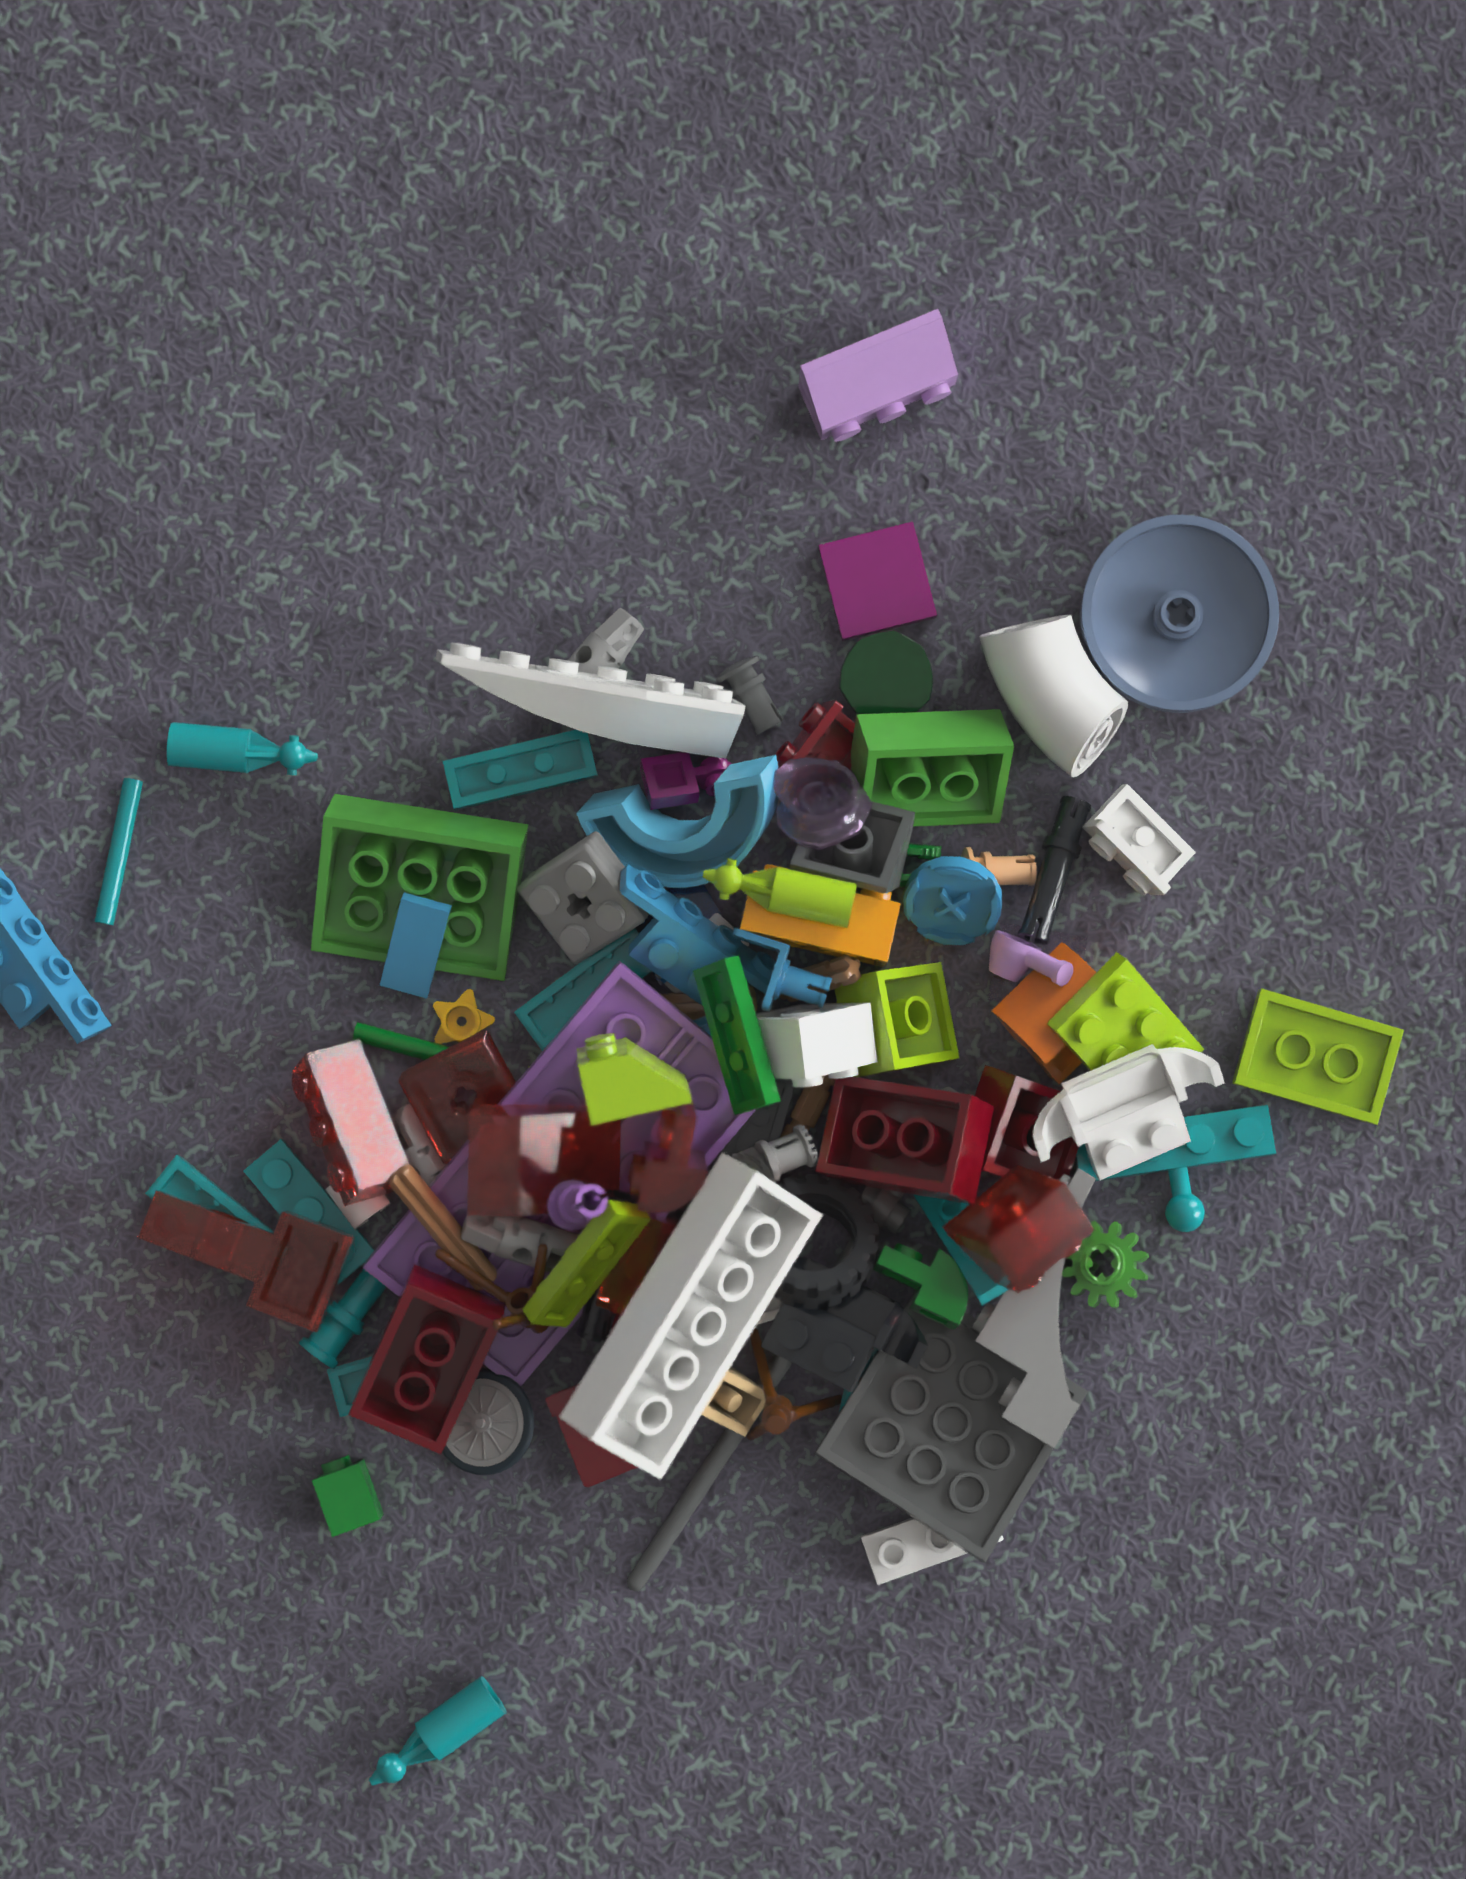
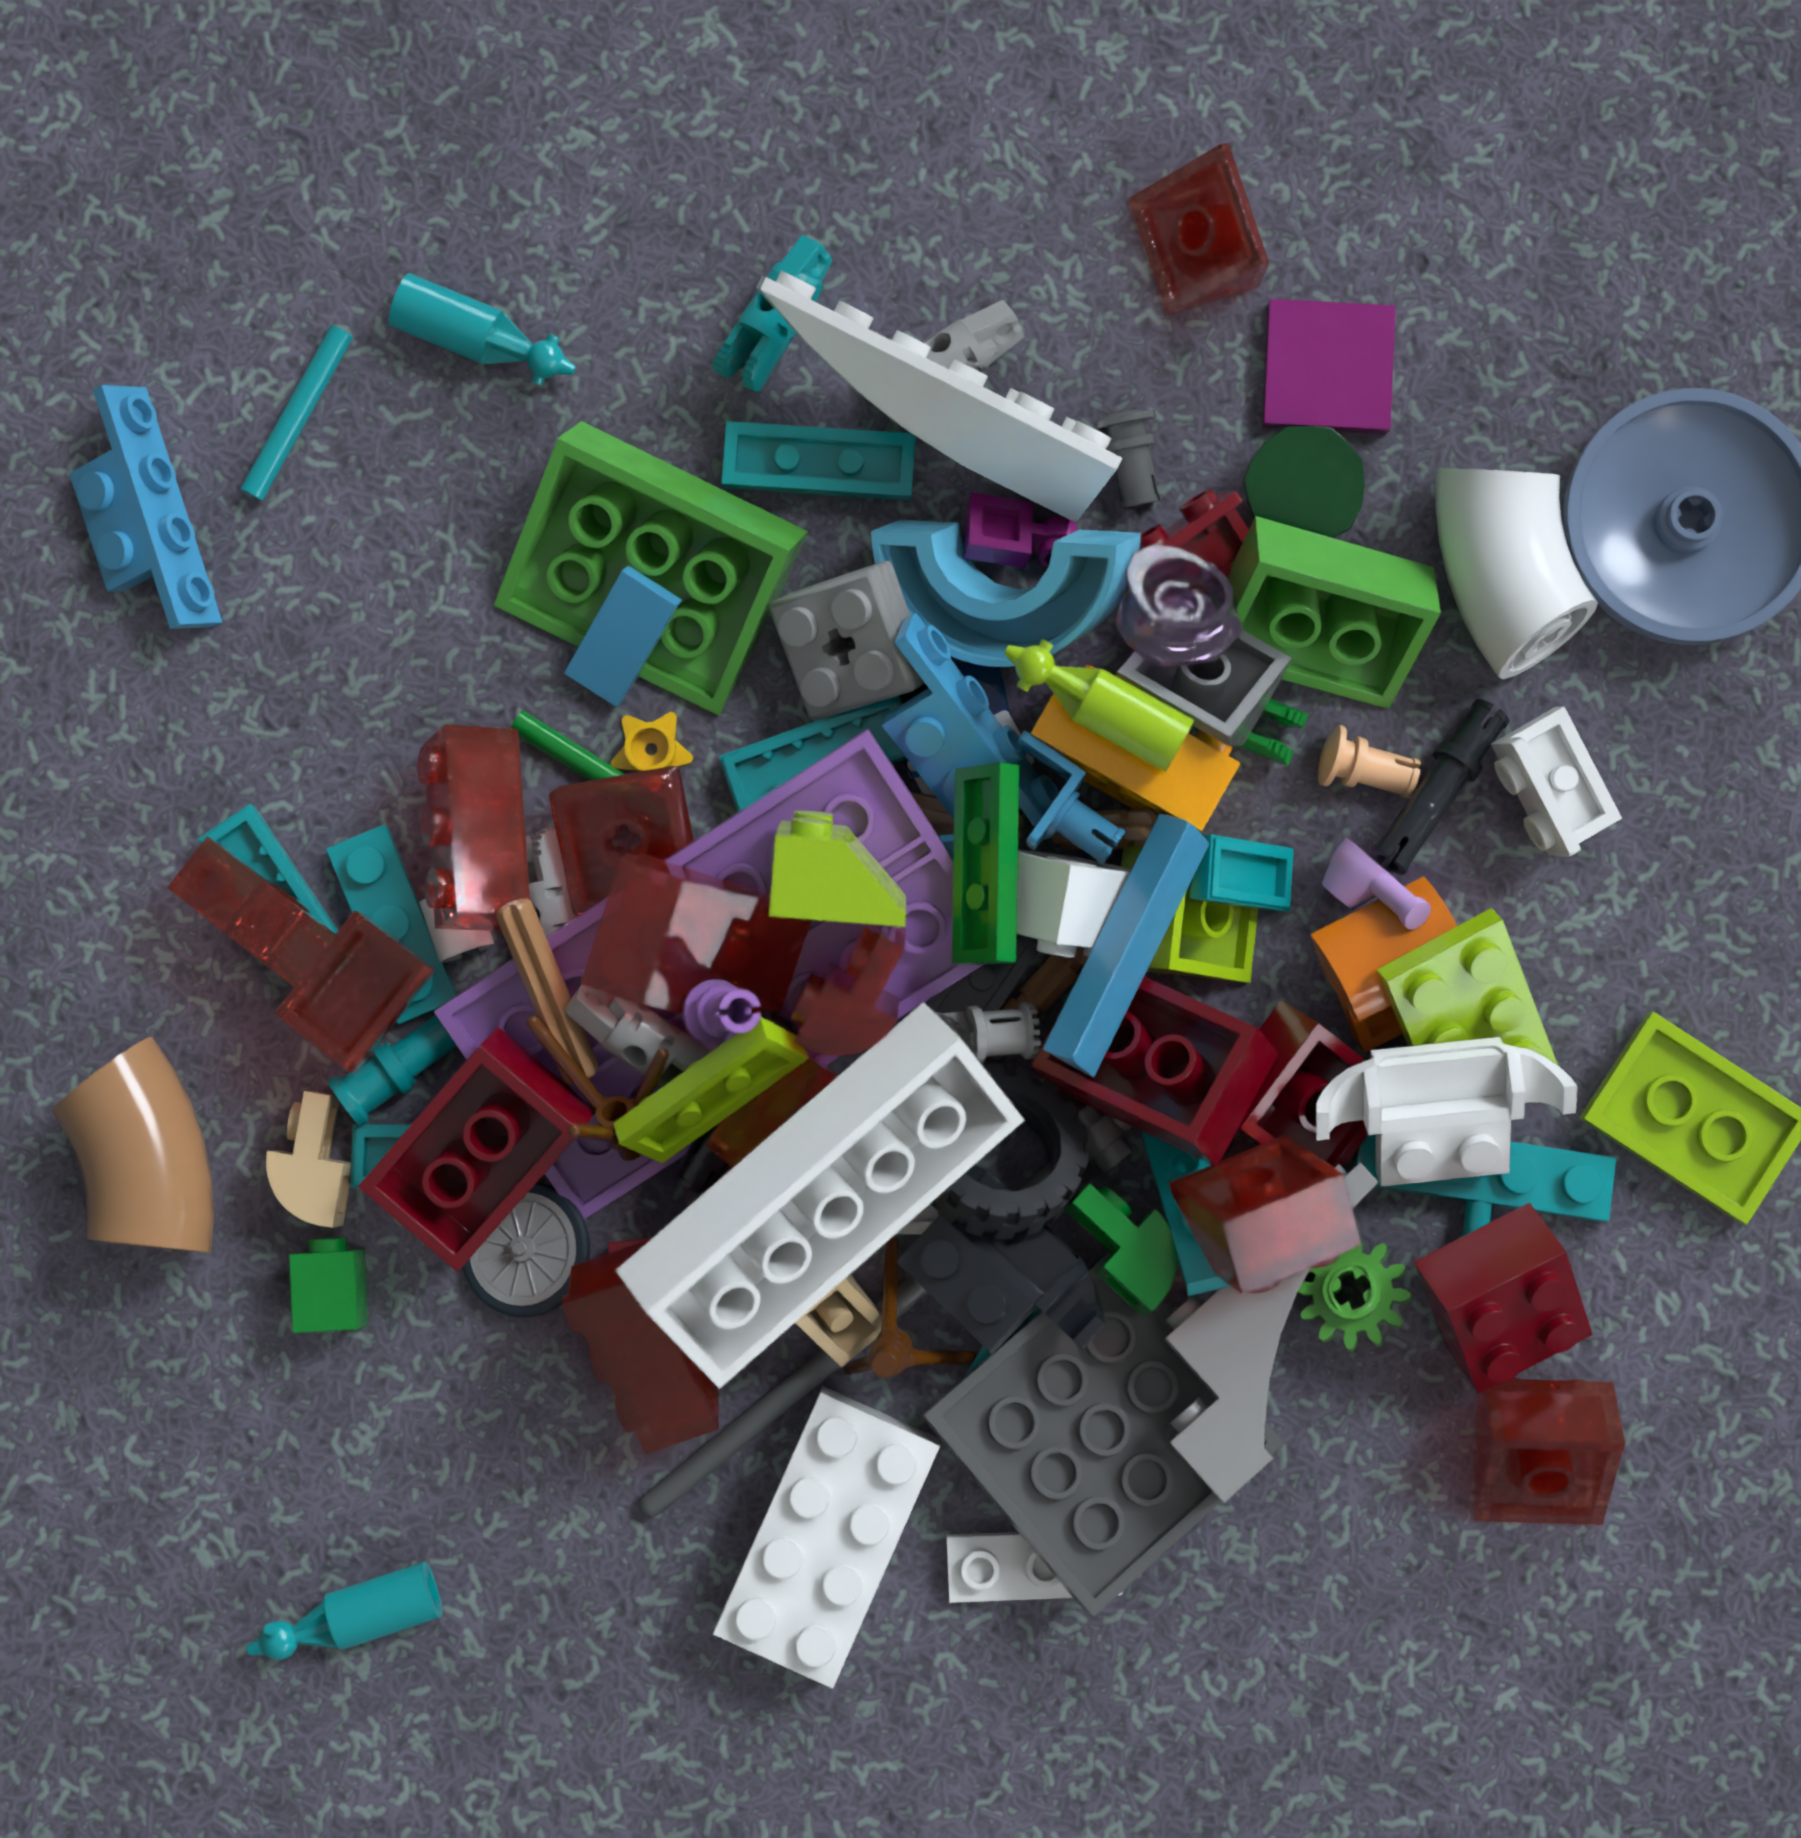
camera: 20 degrees right, 0 degrees up
(178, 1441) = (140, 1154): none -> medium nougat brick
(306, 1421) = (307, 1179): none -> tan brick
(463, 628) = (764, 325): none -> teal hinge
(610, 1488) = (653, 1379): none -> clear red brick
(750, 512) = (1200, 232): none -> clear red slope
(772, 1564) = (827, 1537): none -> white brick
(858, 1062) = (1127, 944): none -> dark azure slope
(879, 376) = (1410, 110): lavender slope -> none
(927, 980) = (1244, 874): none -> teal tile
(952, 900) = (1303, 784): dark azure tile -> none
(1214, 1234) = (1504, 1297): none -> dark red brick
(1281, 1336) = (1546, 1451): none -> clear red slope

